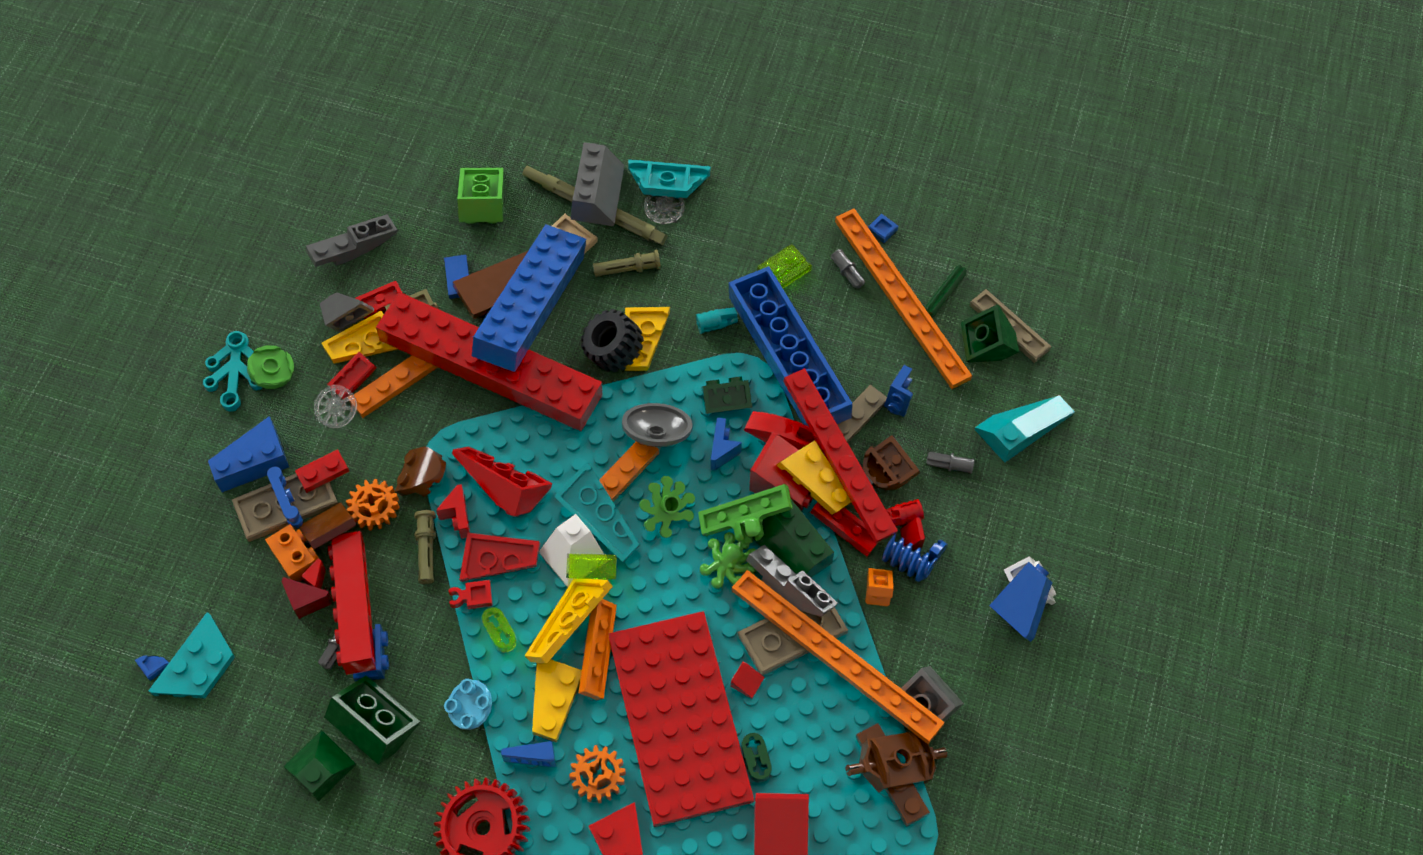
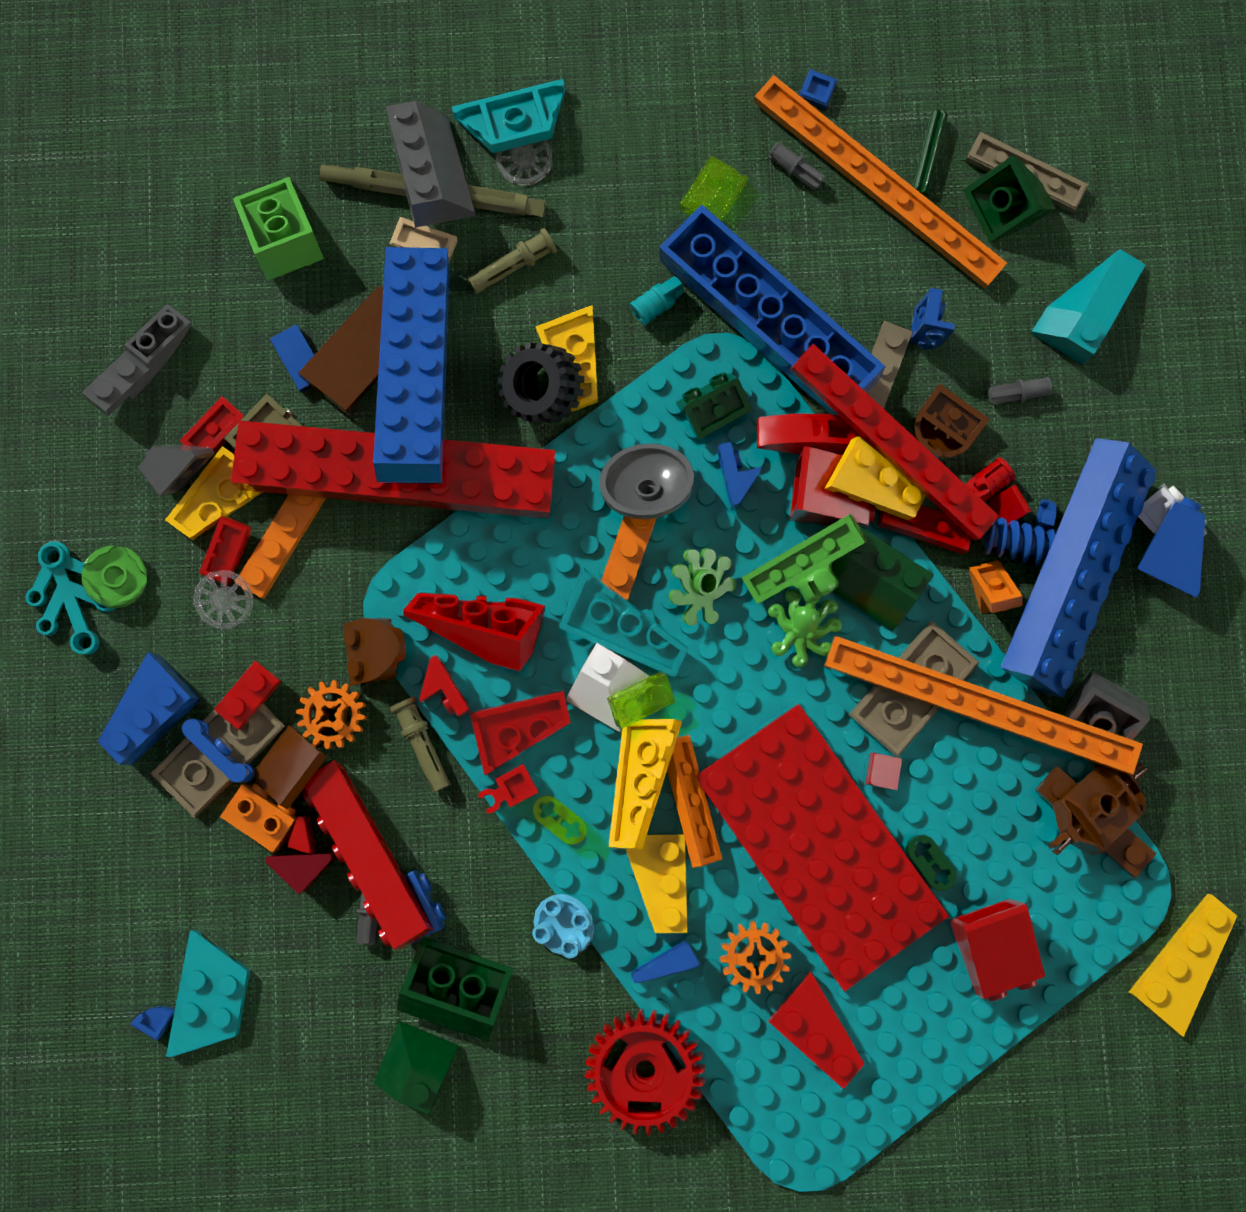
camera: 20 degrees left, 20 degrees up
(795, 588) = (903, 637): dark grey slope -> none
(944, 589) = (1079, 567): none -> blue brick

